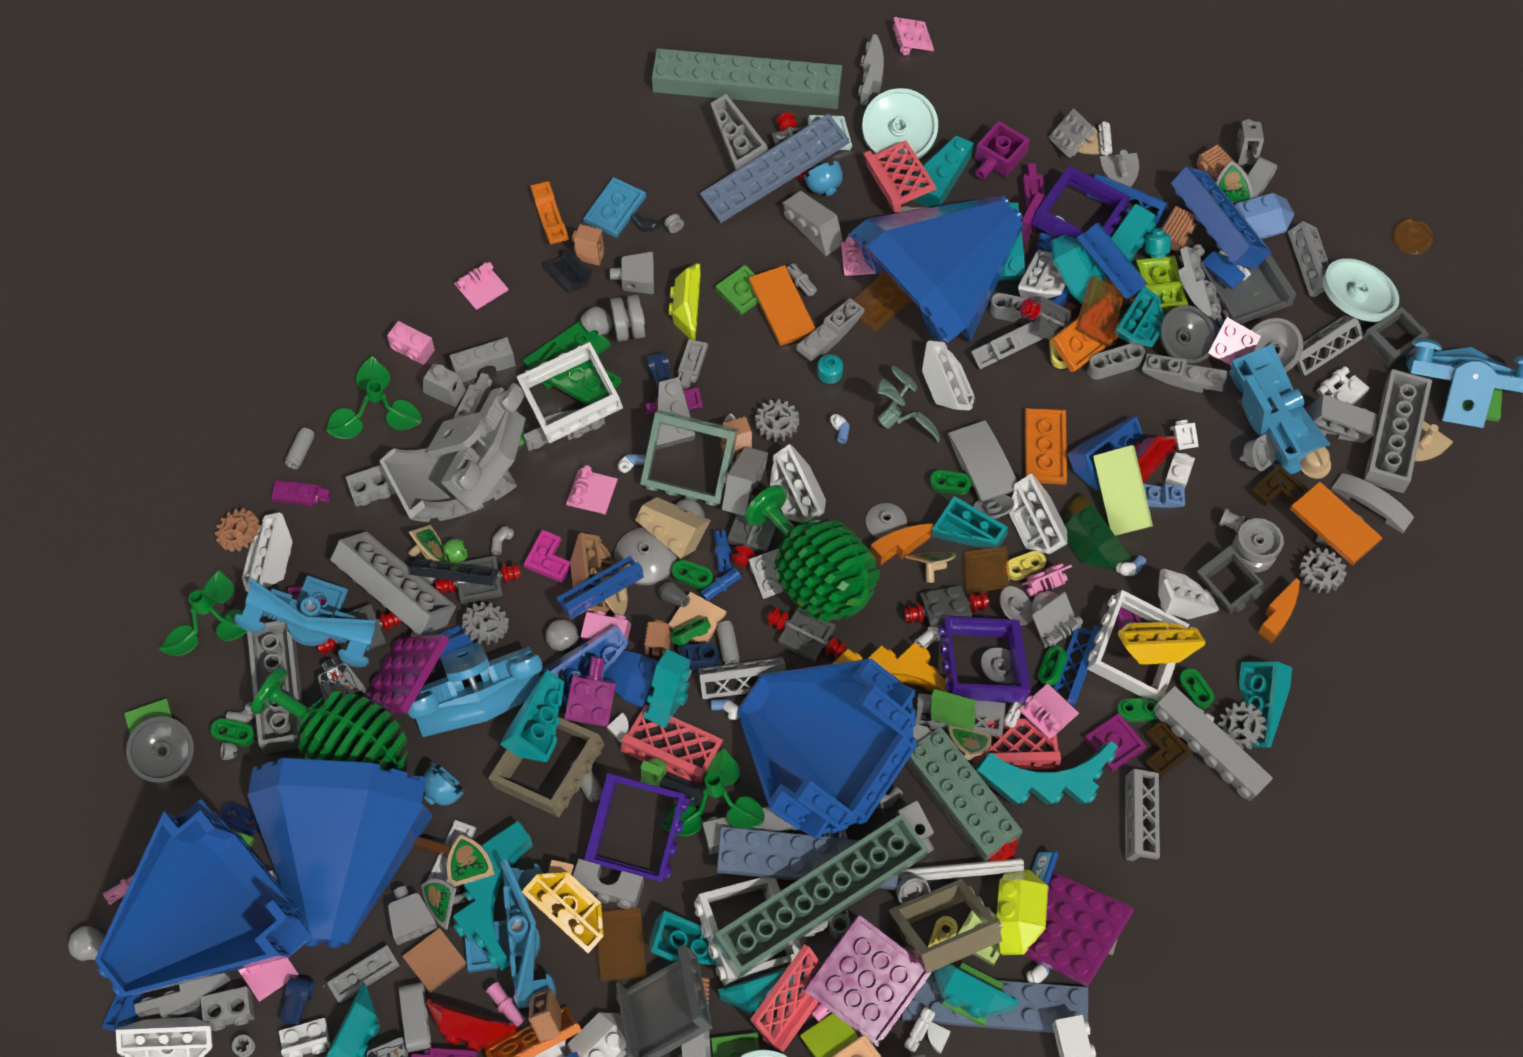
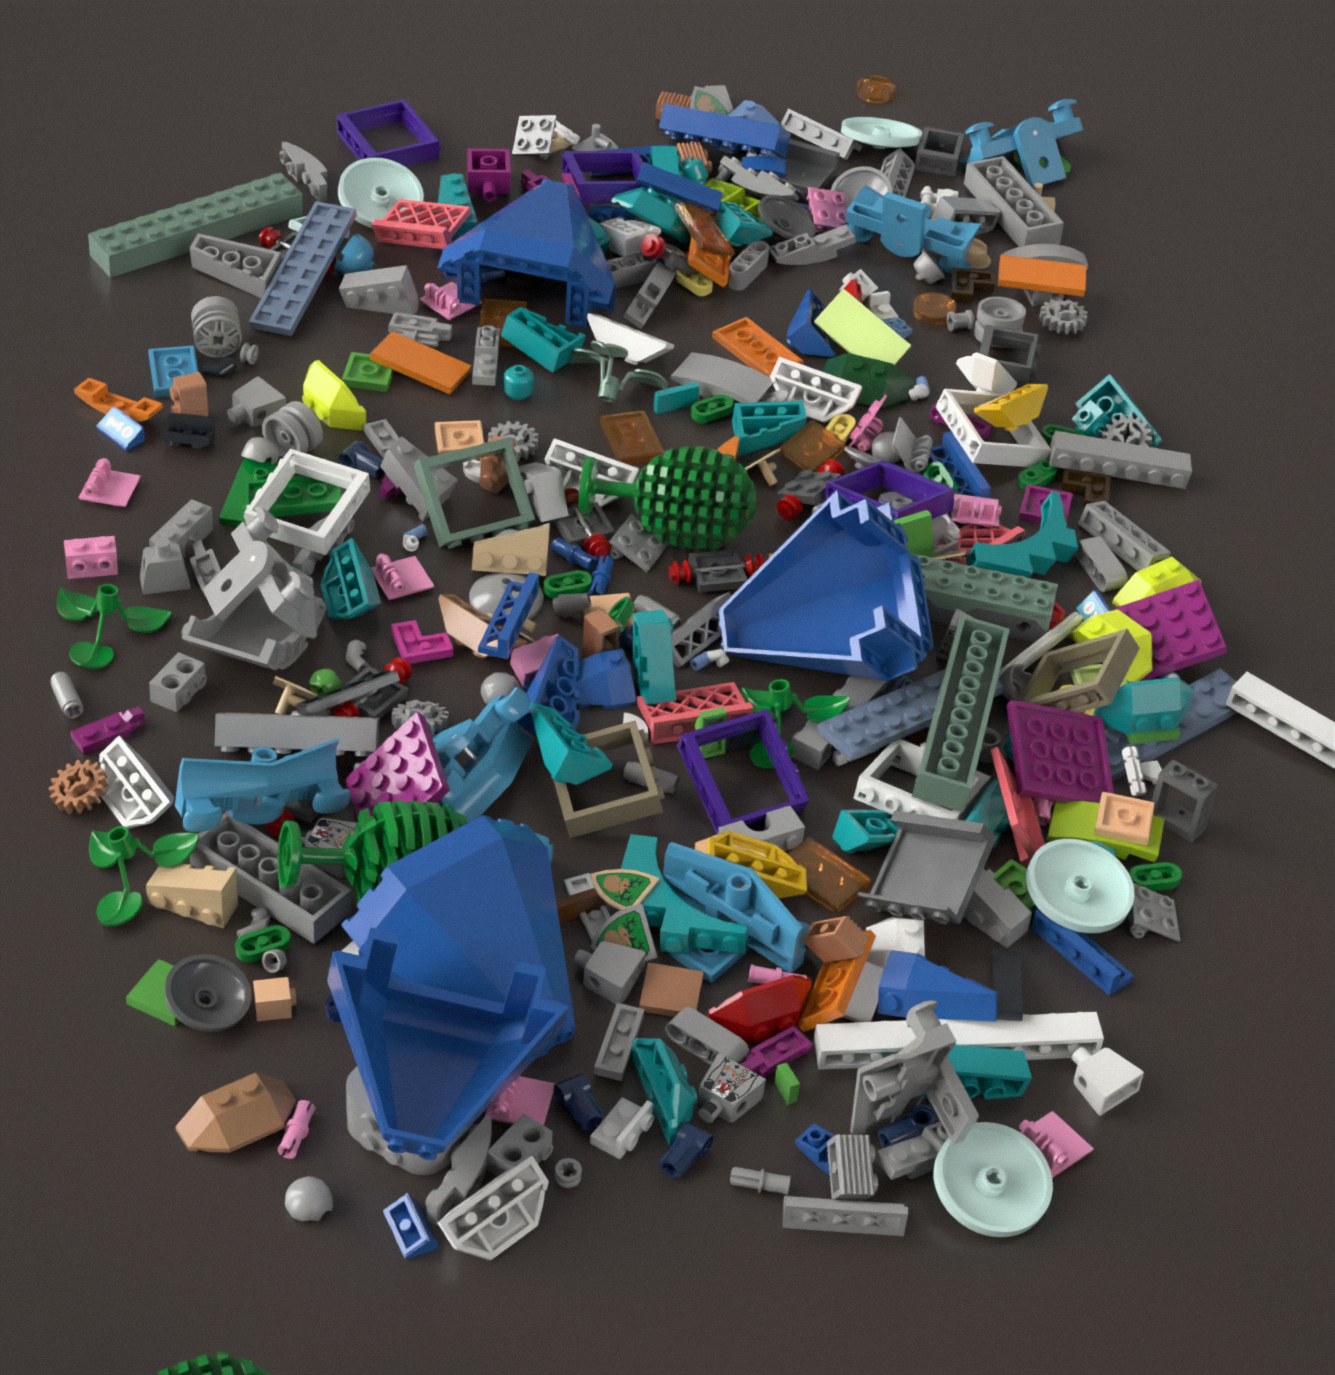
camera: 45 degrees left, 20 degrees down
(103, 852) = (237, 1114): none -> medium nougat wedge
(198, 780) = (273, 999): none -> light nougat brick
(225, 666) = (195, 893): none -> tan wedge
(532, 240) = (121, 429): none -> slope
(546, 479) = (348, 583): none -> teal wedge
(591, 696) = (589, 703): magenta brick -> none
(666, 187) = (216, 326): none -> light grey wheel
(747, 392) = (458, 435): none -> light nougat tile
(816, 271) = (423, 324): none -> light grey hinge
(841, 426) = (573, 419): arm -> none
(869, 470) = (631, 437): none -> clear orange tile
(881, 341) = (541, 340): none -> teal wedge
(911, 35) = (310, 136): bright pink hinge -> none
(932, 456) = (676, 397): none -> teal tile
(971, 43) = (354, 121): none -> dark purple window
(1096, 827) = (1101, 564): none -> light grey beam
(1126, 882) = (1154, 580): none -> neon yellow wedge
(1227, 492) = (933, 307): none -> clear orange tile
(1230, 690) = (1091, 420): none -> teal brick
(1249, 134) = (683, 77): light grey torso -> none
(1279, 612) = (1066, 357): orange slope -> none

